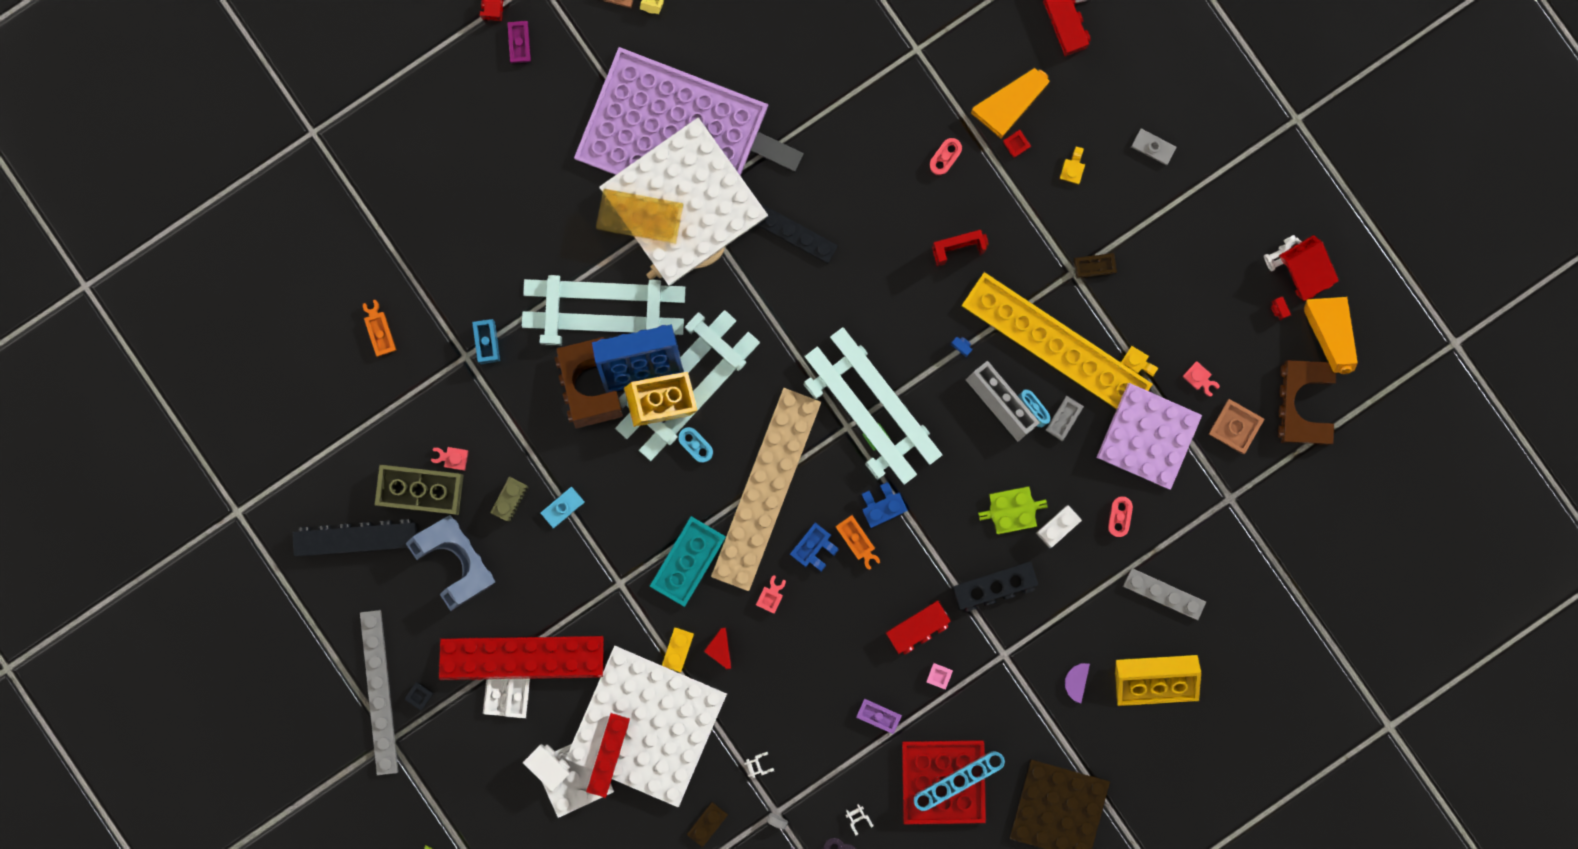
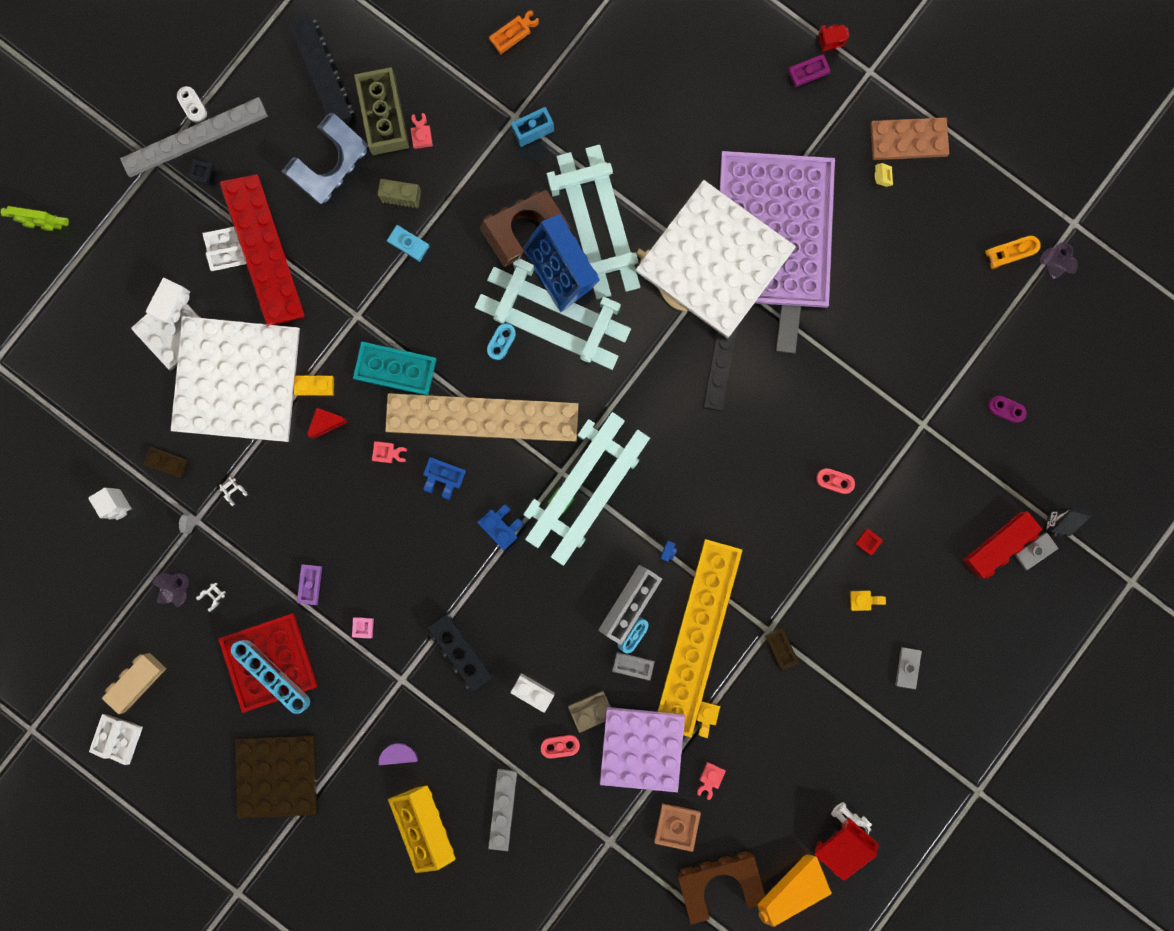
camera: 65 degrees right, 0 degrees up
(343, 684) = (191, 103): none -> white plate
(608, 755) = (195, 352): red plate -> none
(640, 216) = (689, 222): clear yellow plate -> none
(660, 399) = (530, 294): yellow brick -> none
(857, 540) = (461, 513): orange plate -> none
(918, 628) = (400, 594): red brick -> none
(942, 246) = (761, 516): red panel -> none
(1008, 104) = (903, 523): light orange slope -> none
(1012, 510) = (534, 645): lime plate -> none
(1095, 476) = (590, 711): none -> dark tan plate
(1280, 308) = (799, 833): red plate -> none

